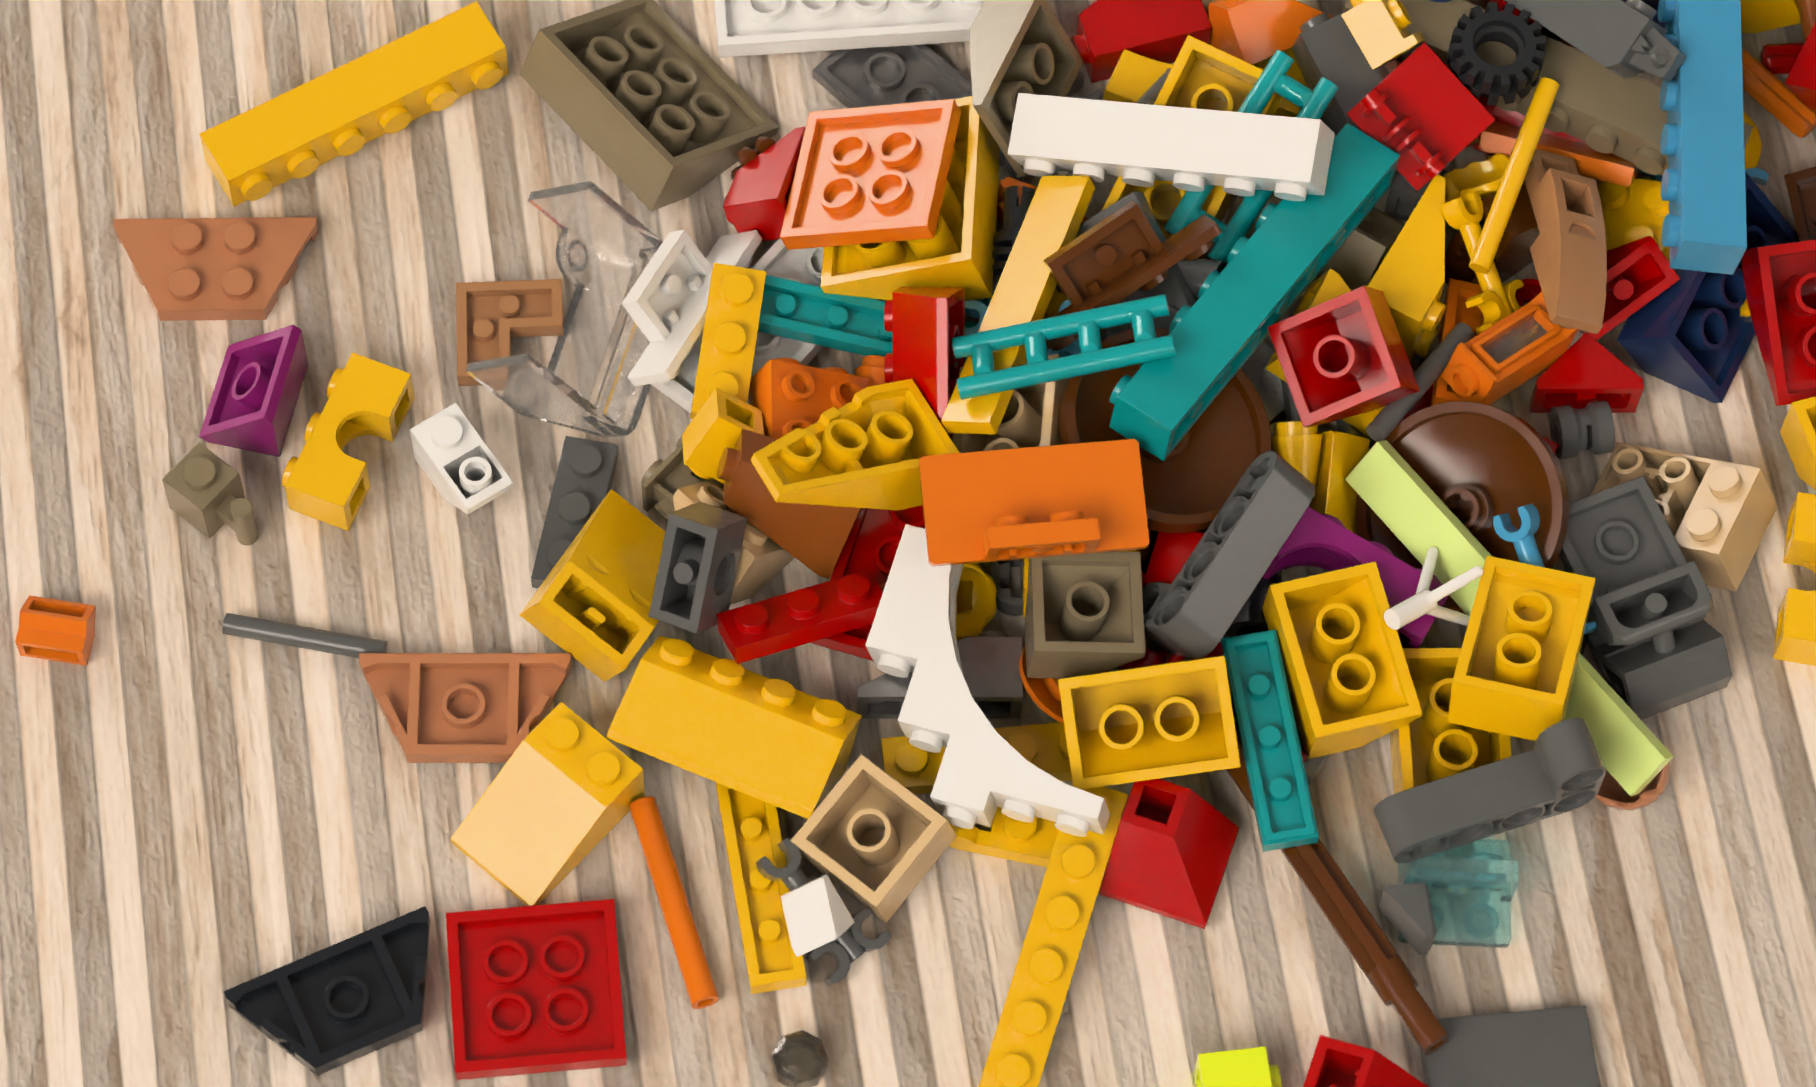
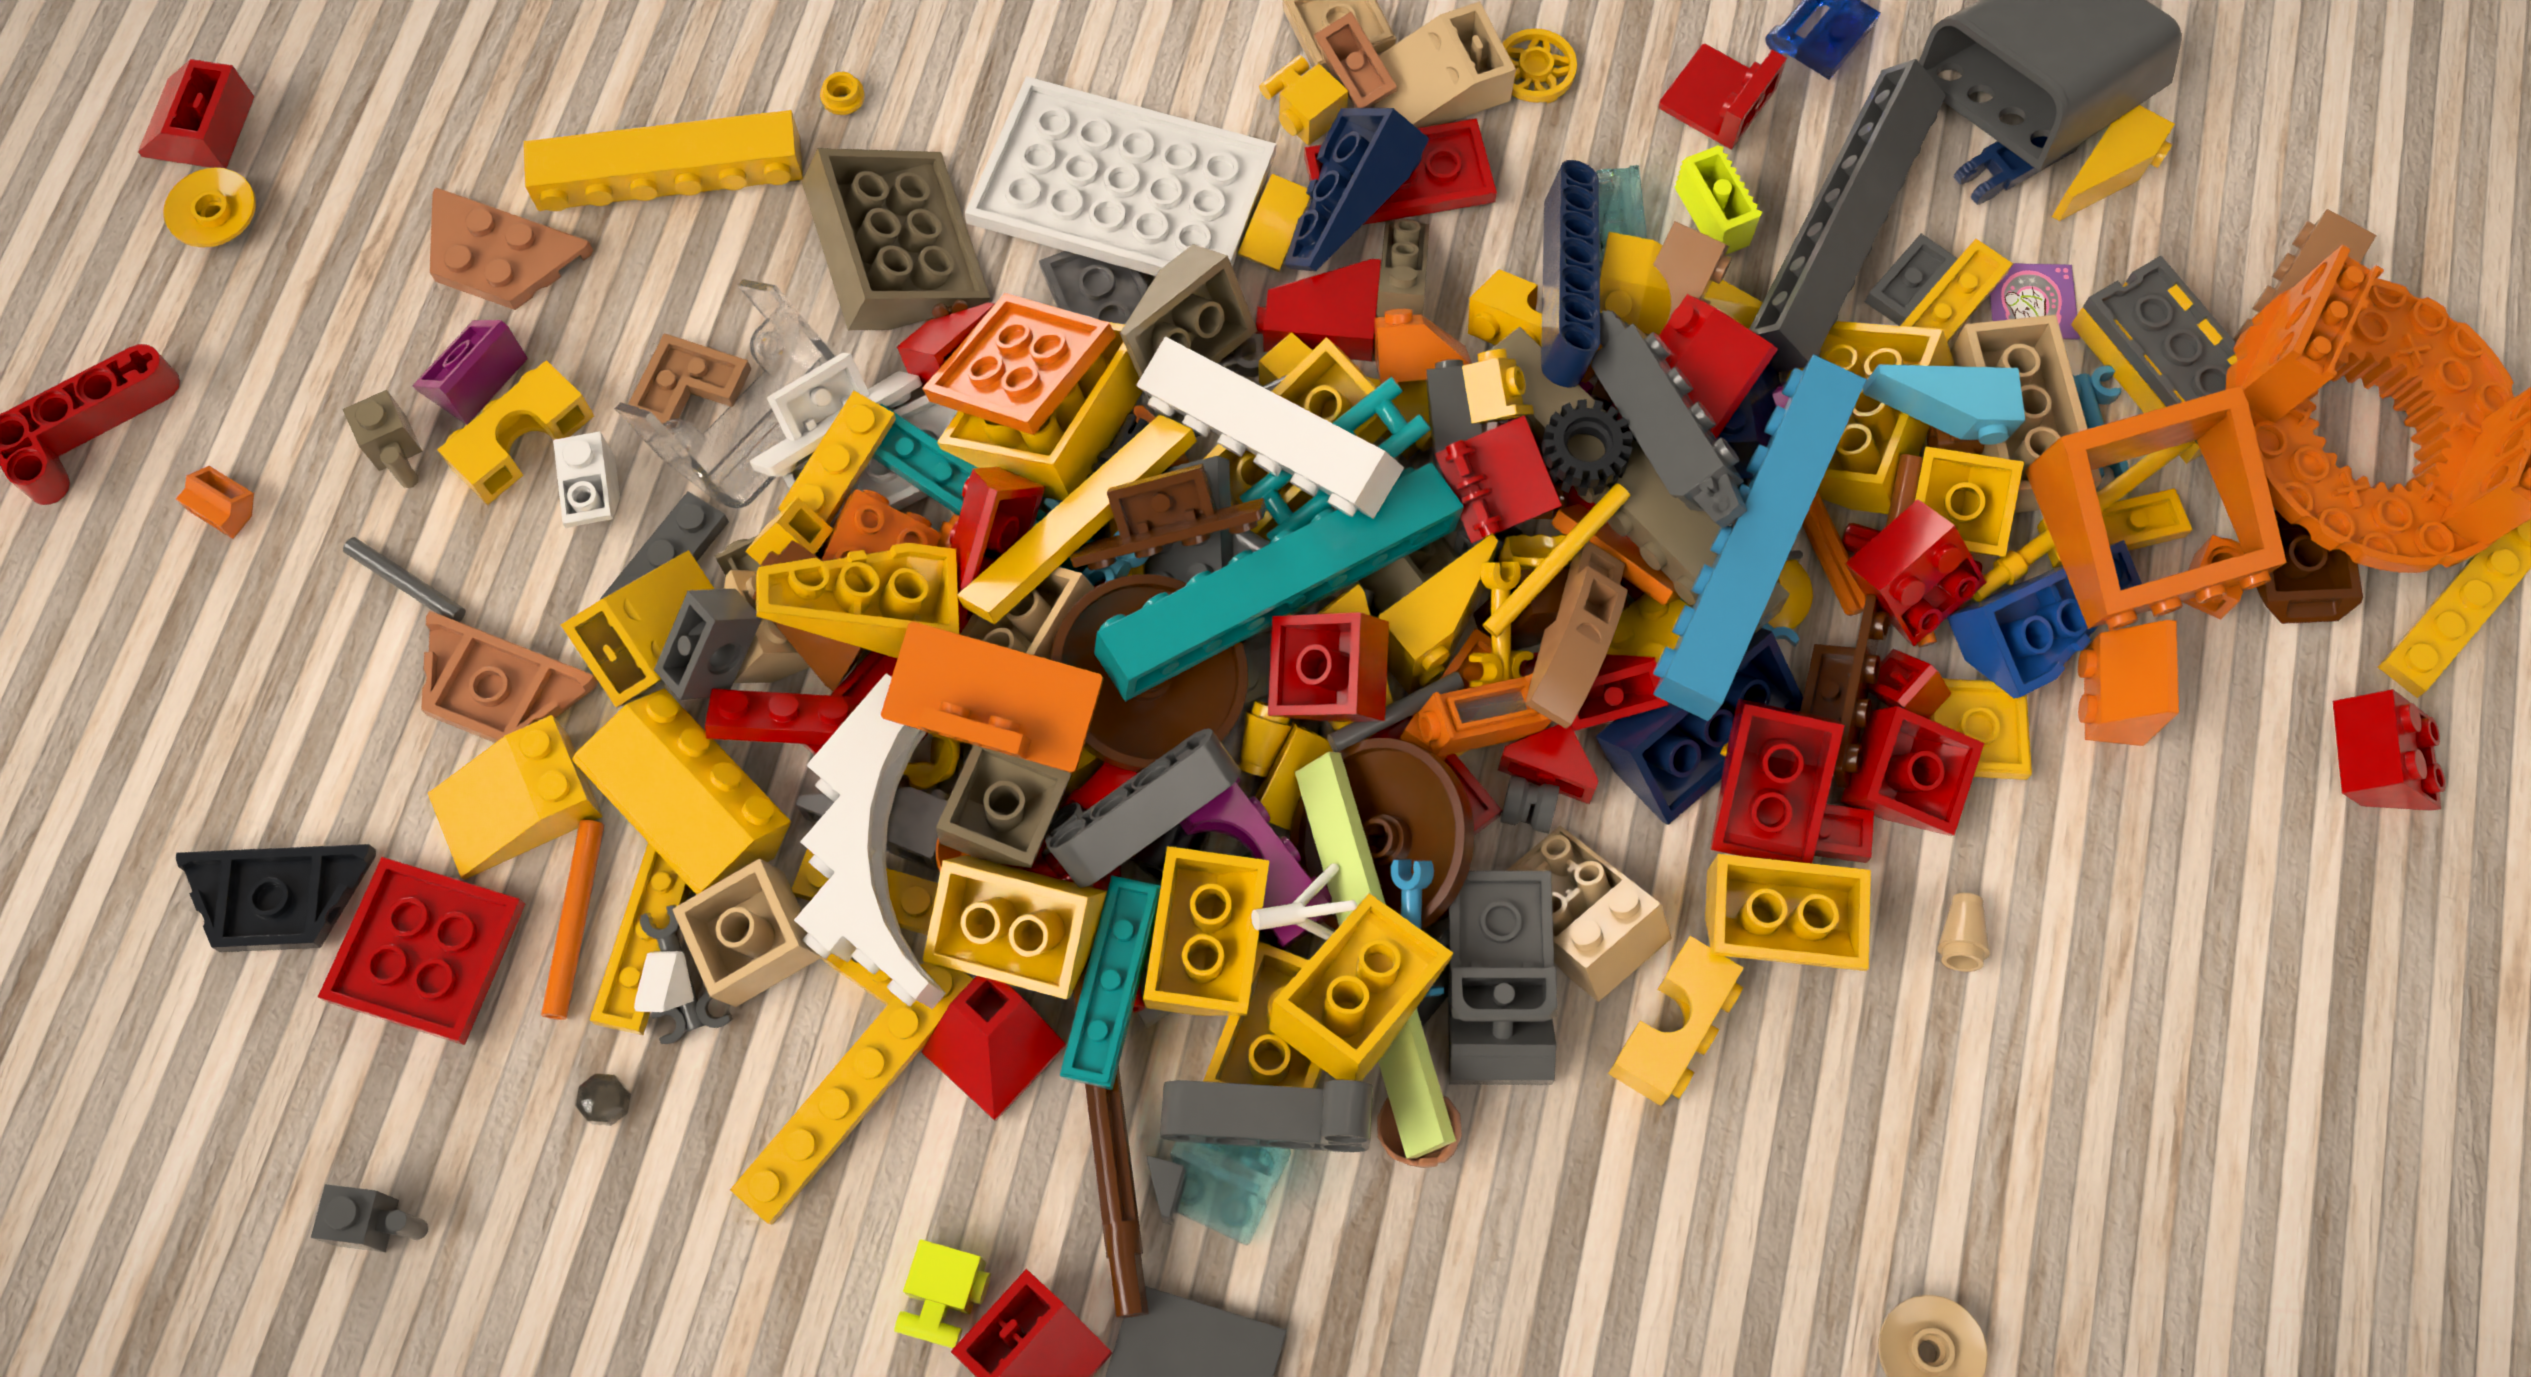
camera: 25 degrees right, 5 degrees up
(1090, 360) = (1098, 588): teal bar -> none

